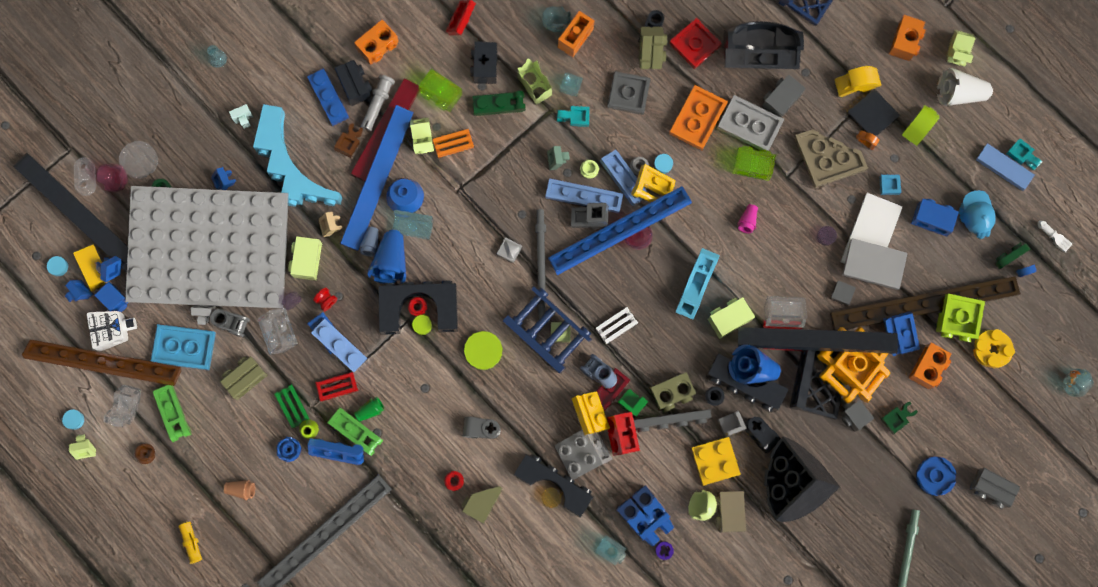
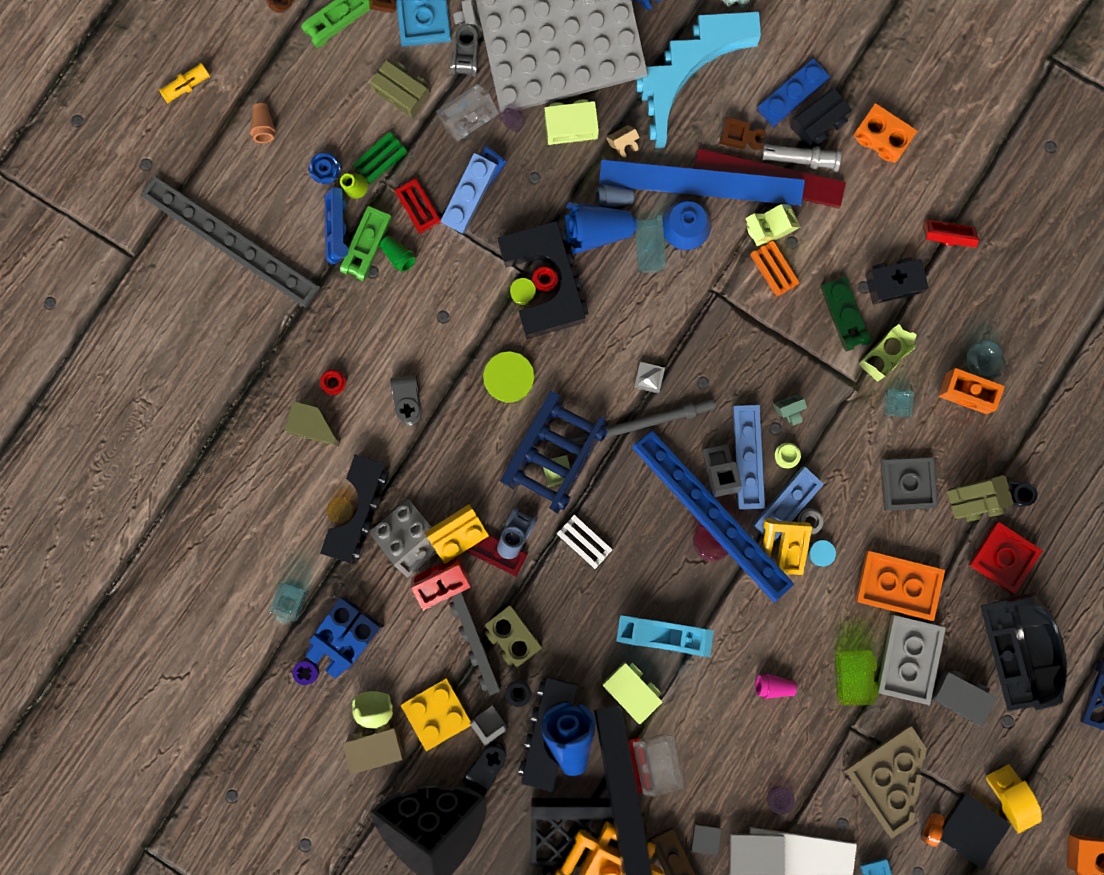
camera: 80 degrees right, 5 degrees up
(325, 299) = (524, 160): red wheel -> none
(440, 90) = (841, 232): clear neon green brick -> none
(577, 116) = (856, 422): teal plate -> none
(632, 402) = (486, 586): green panel -> none

